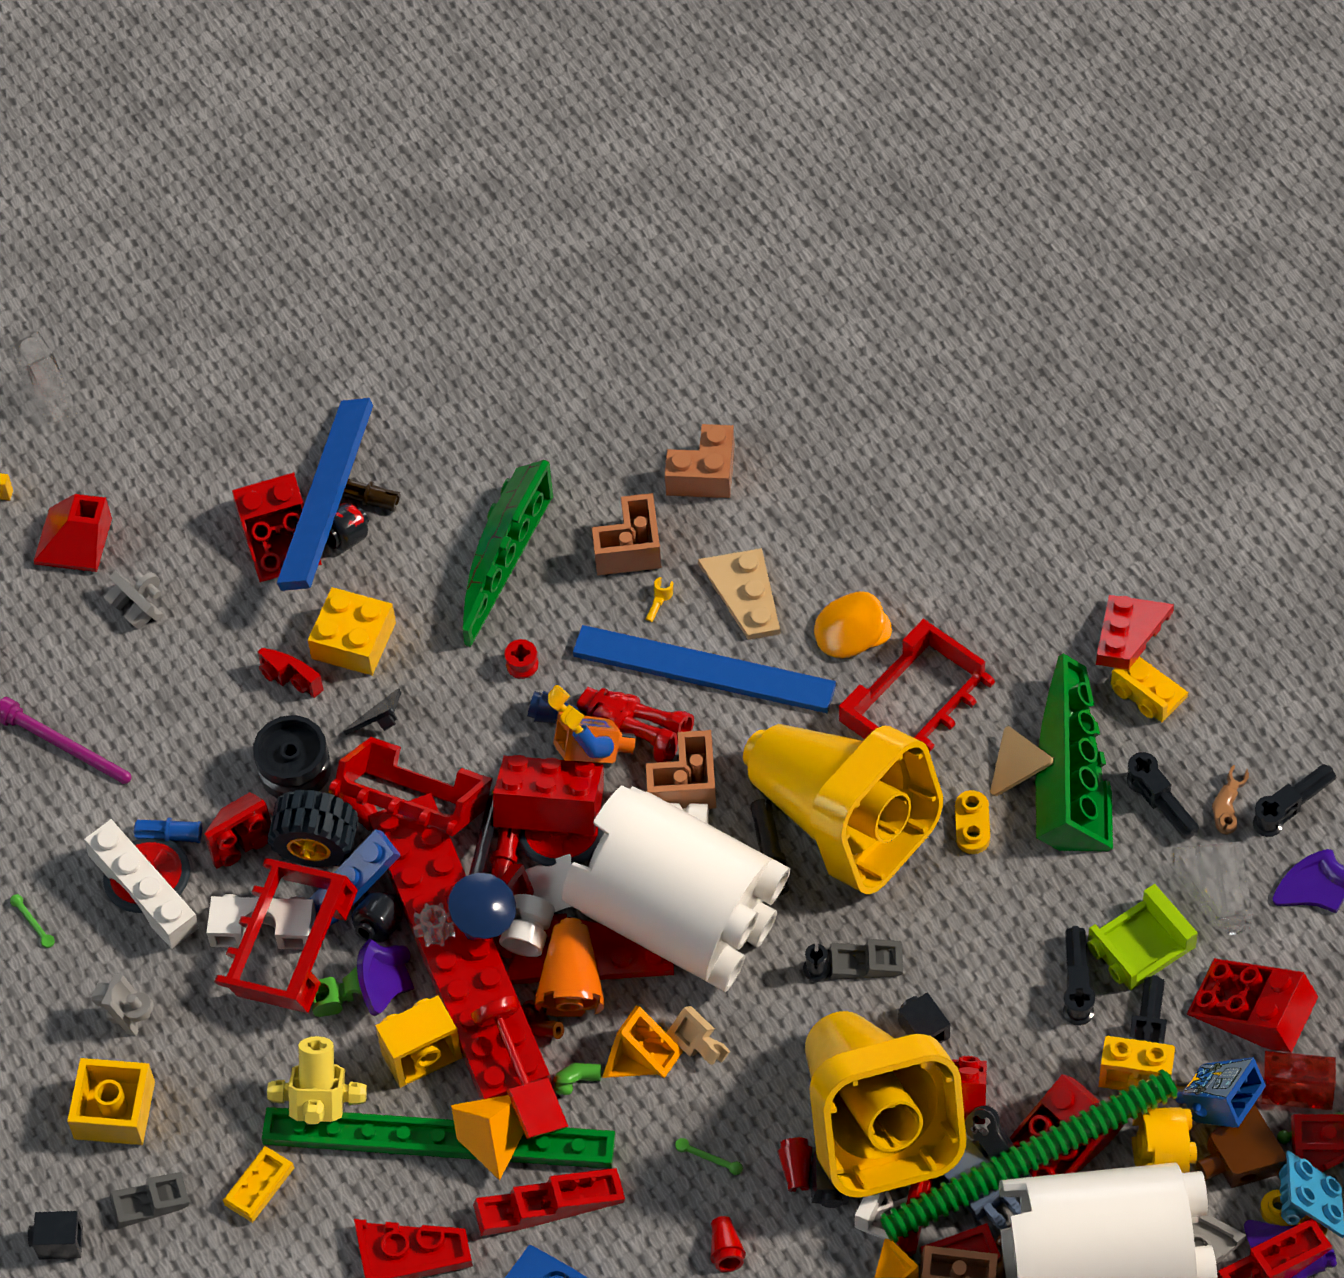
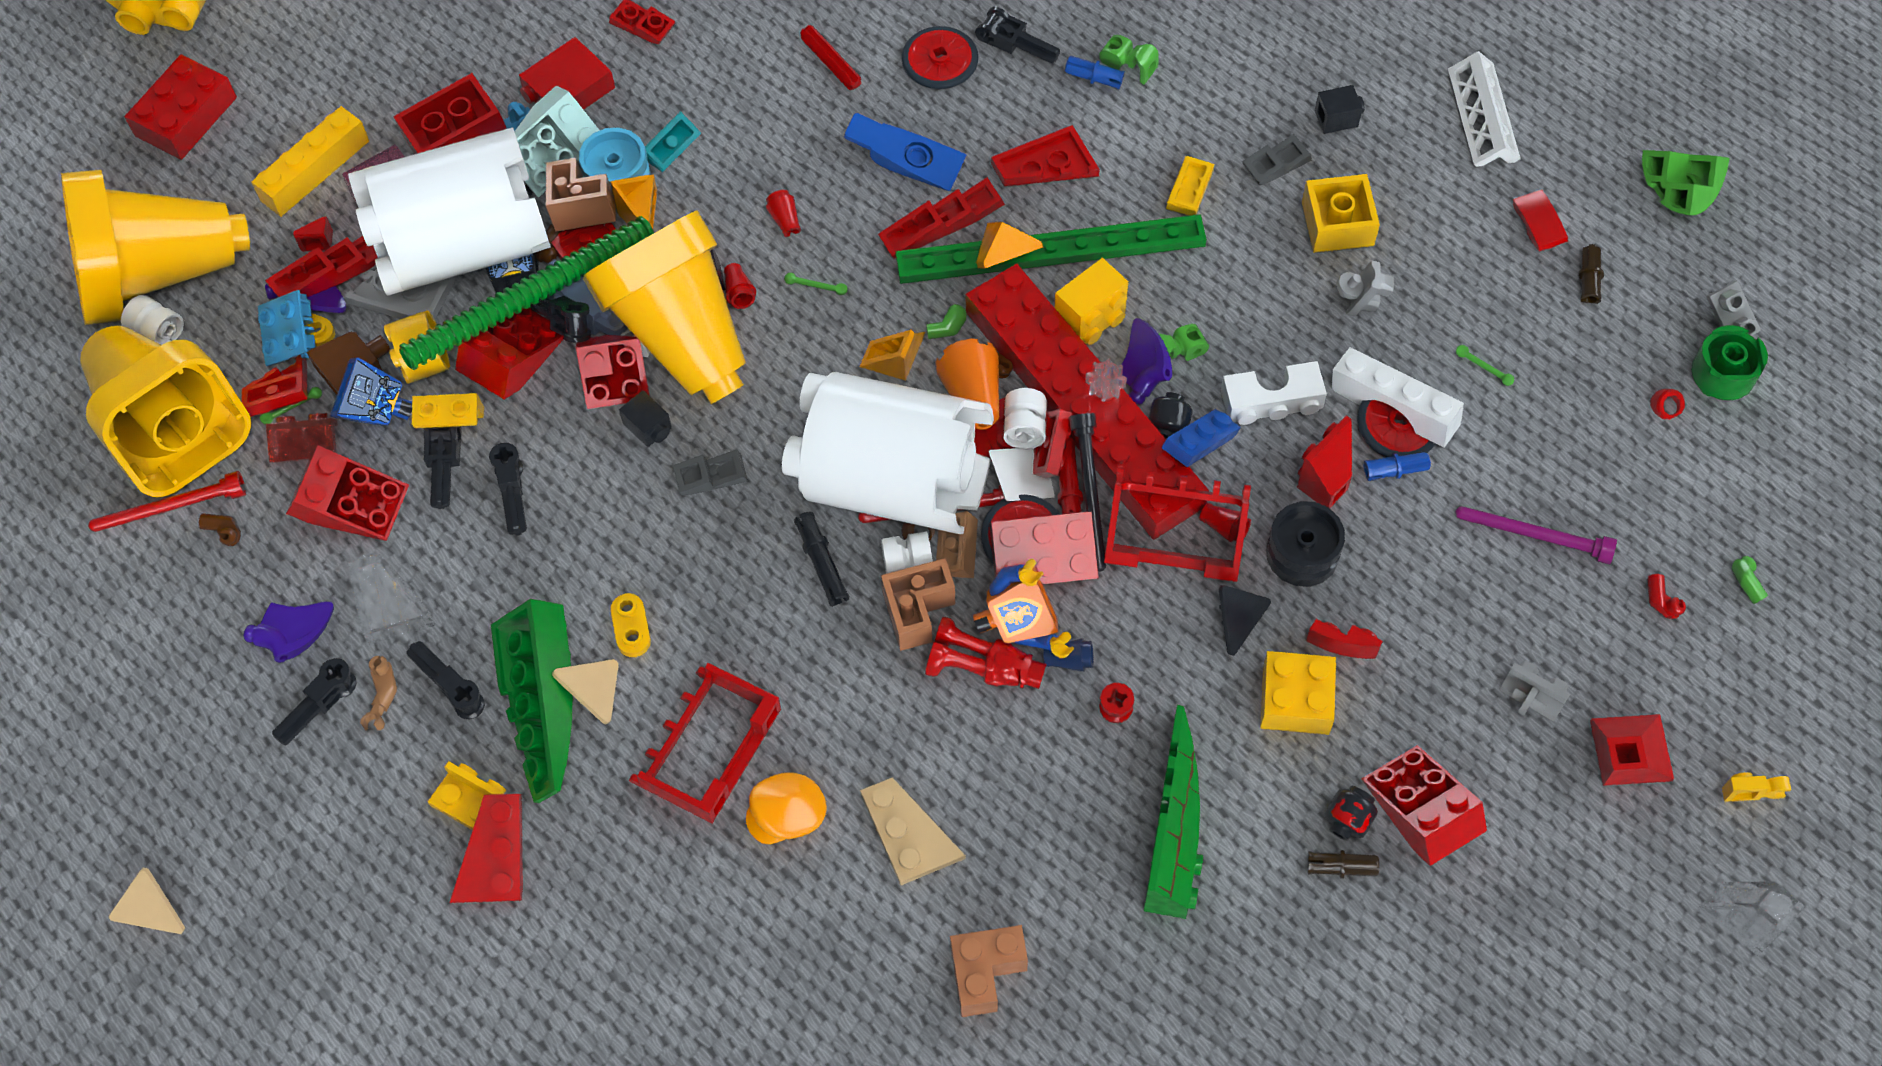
camera: 165 degrees right, 5 degrees up
(303, 983) = (1253, 322): red hinge -> none
(312, 828) = (1258, 459): black wheel -> none
(316, 1085) = (1152, 253): light yellow piece -> none
(325, 495) = (1384, 837): blue tile -> none
(481, 906) = (1065, 395): dark blue dish -> none
(534, 1101) = (969, 264): red piece -> none
(630, 544) = (1034, 849): nougat brick -> none
(661, 595) = (996, 802): yellow hand -> none
(693, 1034) = (841, 365): tan plate -> none
(704, 669) = (929, 734): blue tile -> none
(816, 958) = (753, 447): black pin -> none
(856, 798) = (757, 587): yellow cone -> none
(1143, 939) = (455, 537): lime panel -> none

